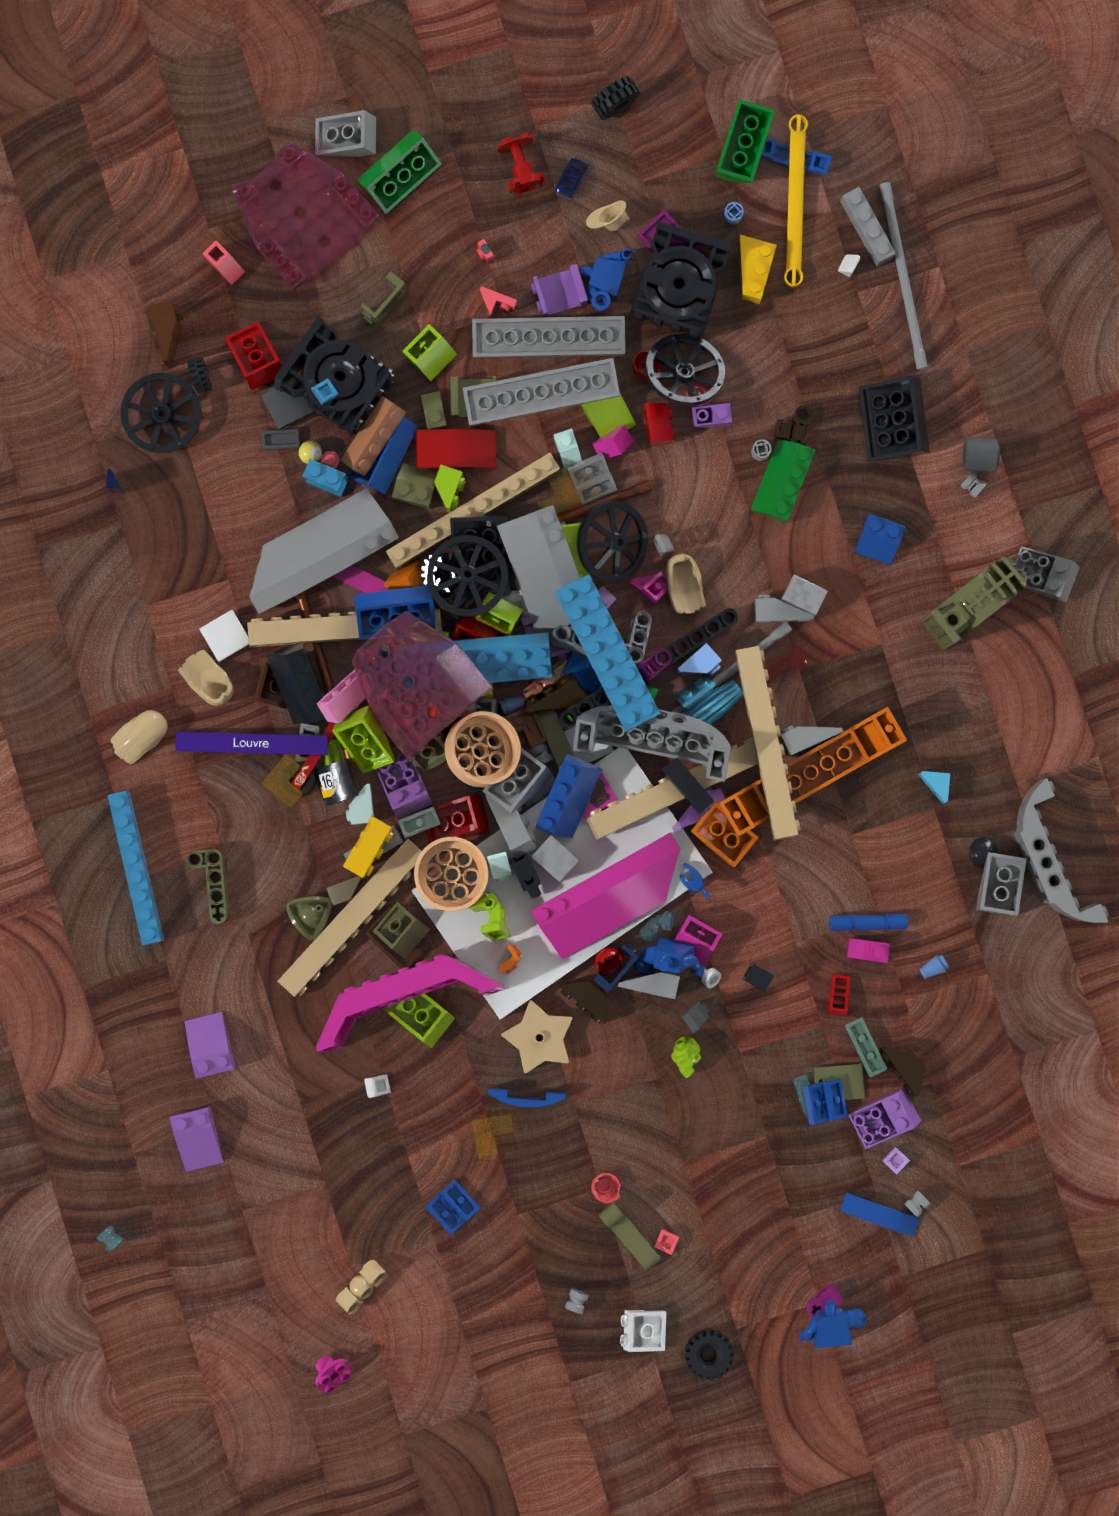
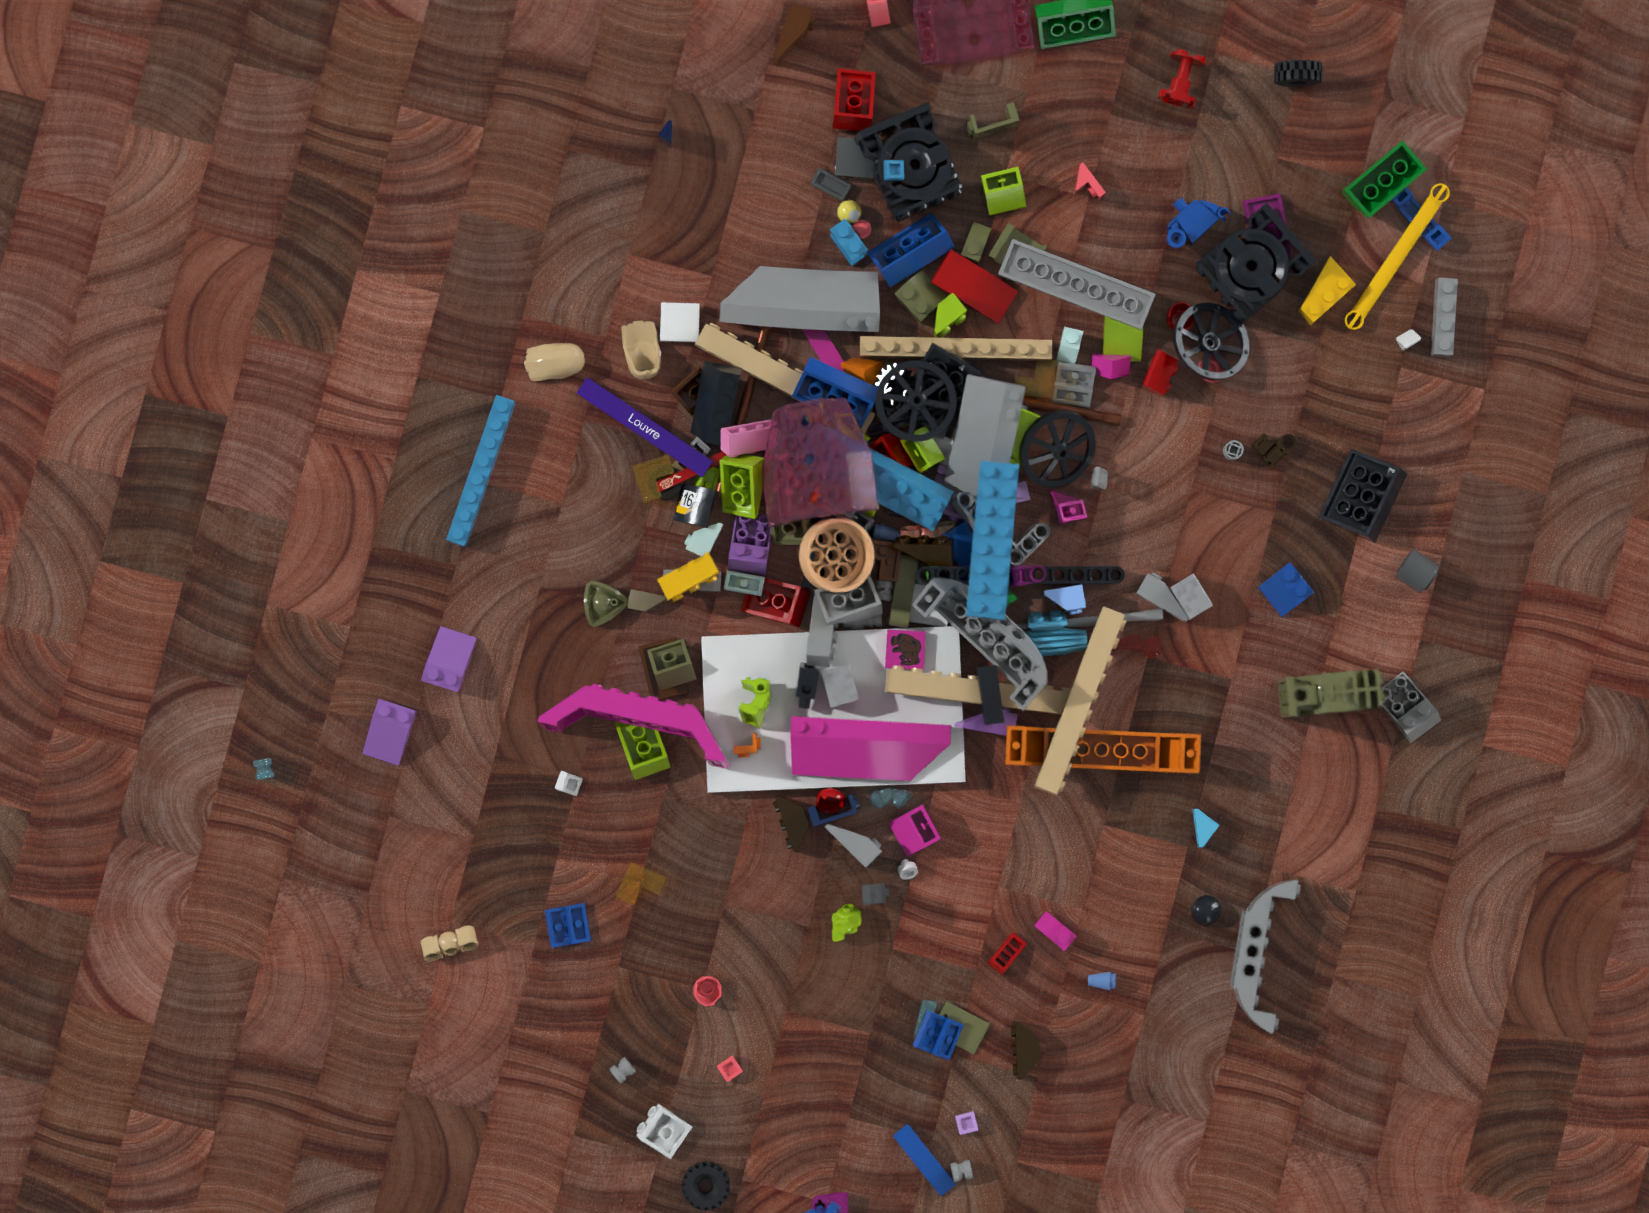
camera: 30 degrees right, 0 degrees up
(157, 409) = (769, 75): black wheel -> none
(199, 375) = (796, 87): black tyre -> none
(212, 886) = (535, 527): olive beam -> none
(331, 1373) = (378, 1000): dark pink plate -> none
(350, 919) = (636, 627): tan brick -> none
(373, 436) = (911, 232): nougat brick -> none
(431, 858) = (761, 624): light nougat wheel -> none
(484, 251) = (1104, 133): coral plate -> none
(500, 866) = (789, 663): light aqua slope -> none
(501, 1094) = (708, 886): blue slope -> none
(548, 337) = (1113, 240): light grey plate -> none
(553, 1032) = (736, 814): tan plate -> none
(559, 291) = (1146, 207): medium lavender panel -> none
(568, 797) = (883, 641): blue slope -> none
(571, 192) = (1206, 126): clear blue slope -> none
(609, 216) = (1229, 170): tan piece -> none
(629, 1235) = (702, 1043): olive beam -> none
(670, 957) = (883, 829): blue torso -> none
(684, 584) = (1095, 523): tan hair -> none
(696, 882) = (945, 782): blue hand -> none
(712, 416) = (1209, 395): medium lavender slope -> none
(720, 836) = (990, 756): orange slope -> none
(731, 216) = (1334, 235): medium blue wheel -> none
(758, 977) = (947, 894): black panel -> none
(782, 480) = (1235, 487): green slope -> none
(801, 738) = (1113, 716): light grey slope -> none
(865, 1047) = (1001, 1011): sand green plate -> none
(868, 922) = (1070, 907): blue piece -> none
(885, 1118) = (980, 1081): medium lavender slope -> none
(919, 353) = (1476, 305): light grey piece -> none
(970, 481) = (1391, 590): light grey wheel -> none
(1001, 884) = (1203, 946): light grey slope -> none

